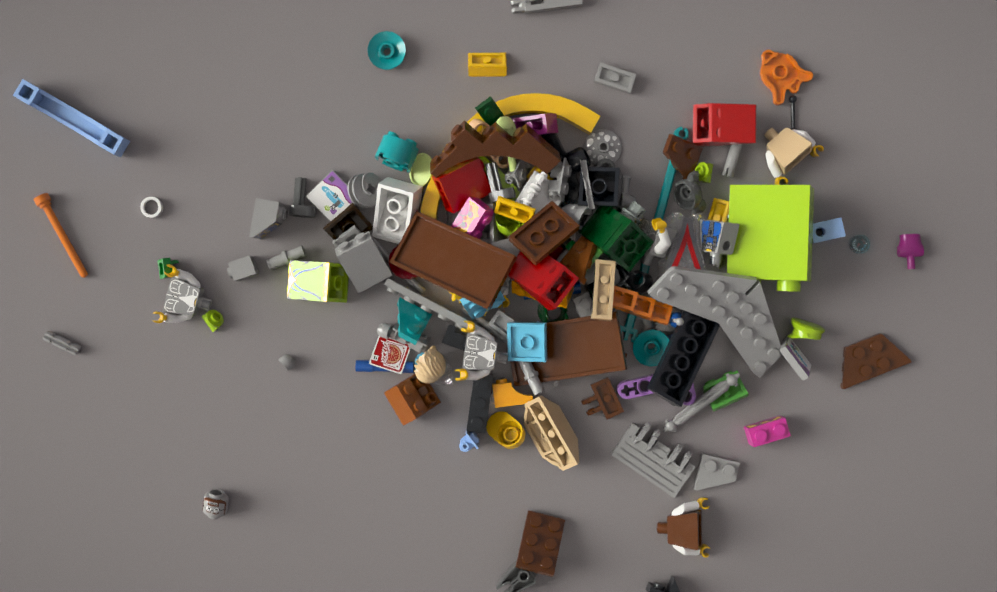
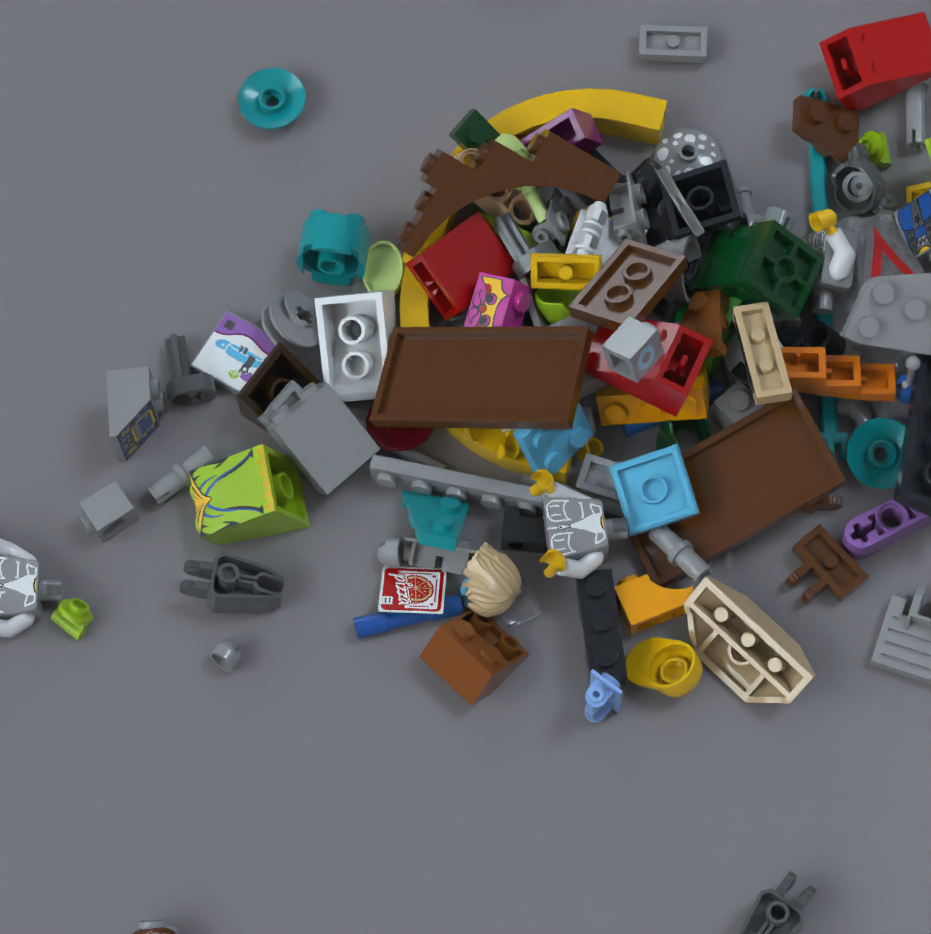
camera: 15 degrees left, 20 degrees down
(297, 327) = (235, 585): none -> dark grey hinge
(487, 64) = (450, 81): yellow slope -> none
(534, 276) = (633, 349): none -> light grey brick
(540, 543) = (790, 850): reddish brown plate -> none

